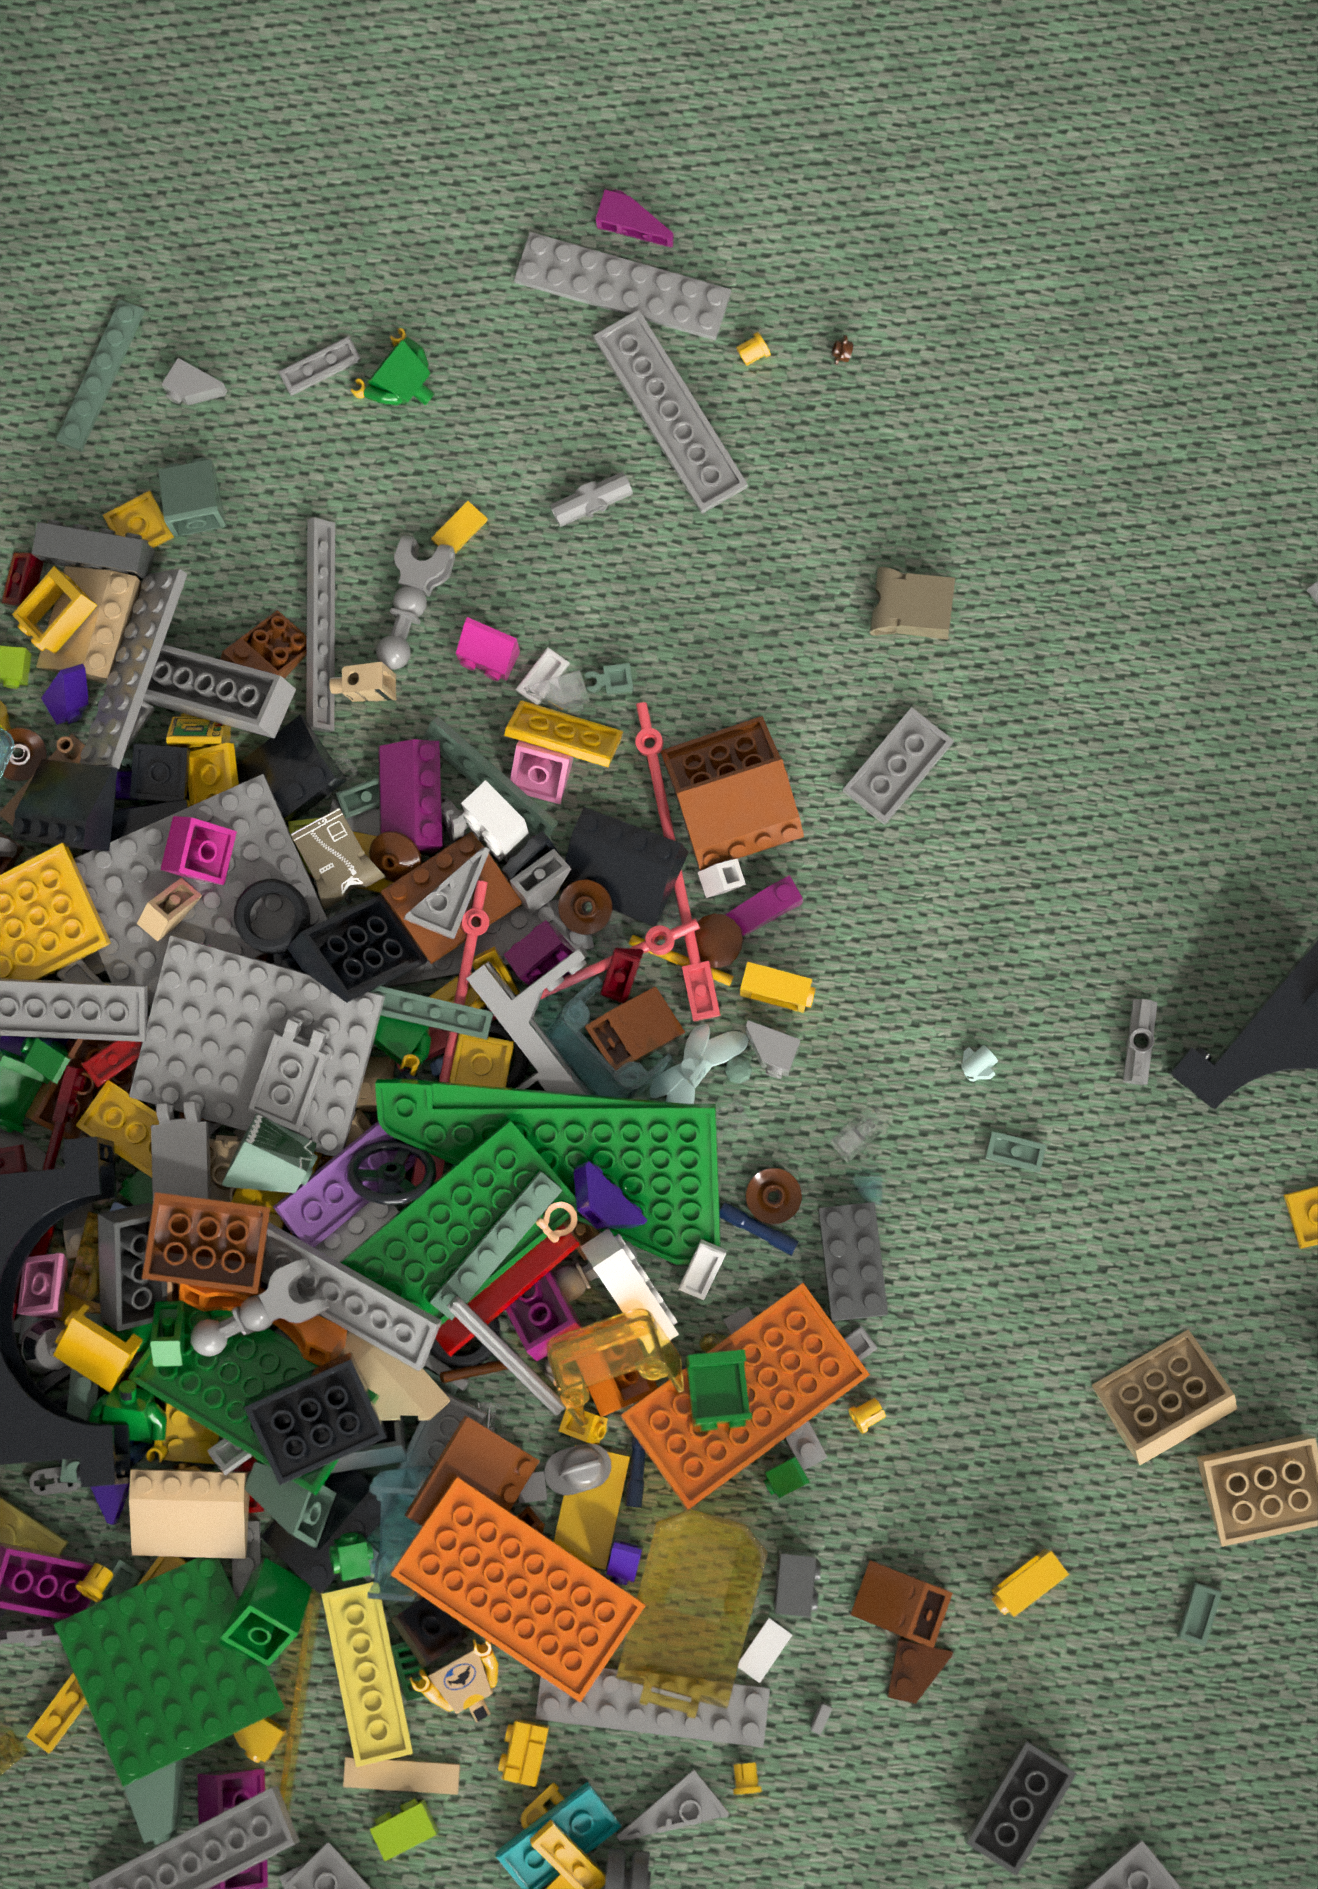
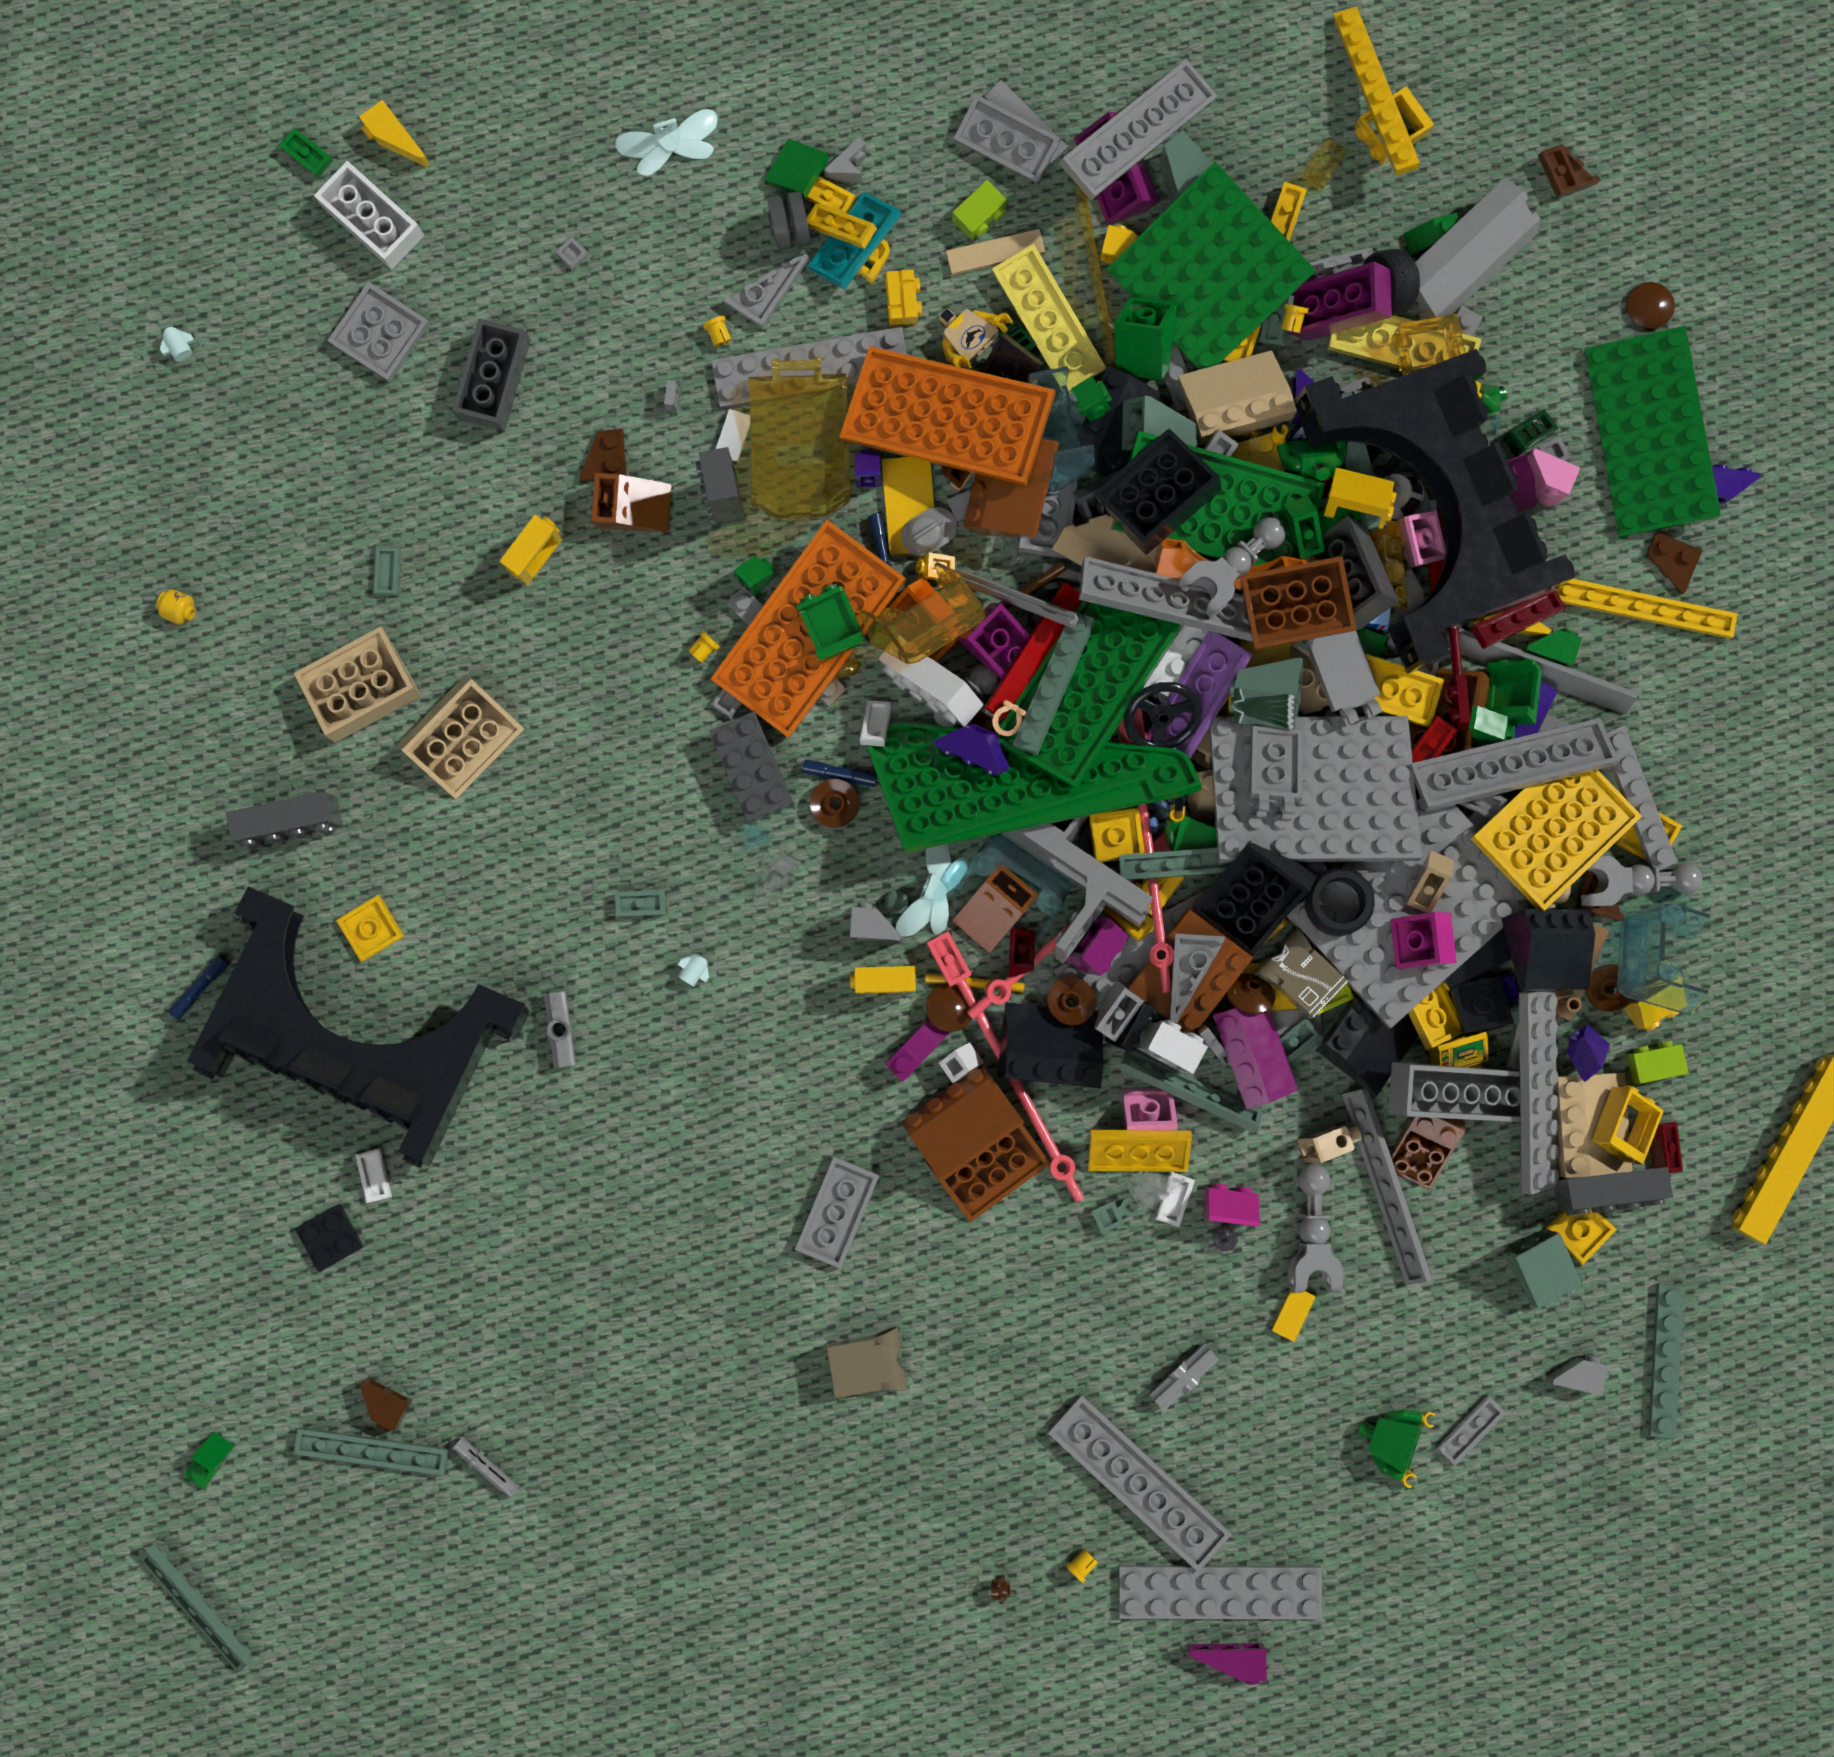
camera: 155 degrees right, 5 degrees up
(504, 621) = (1224, 1238): none -> tile

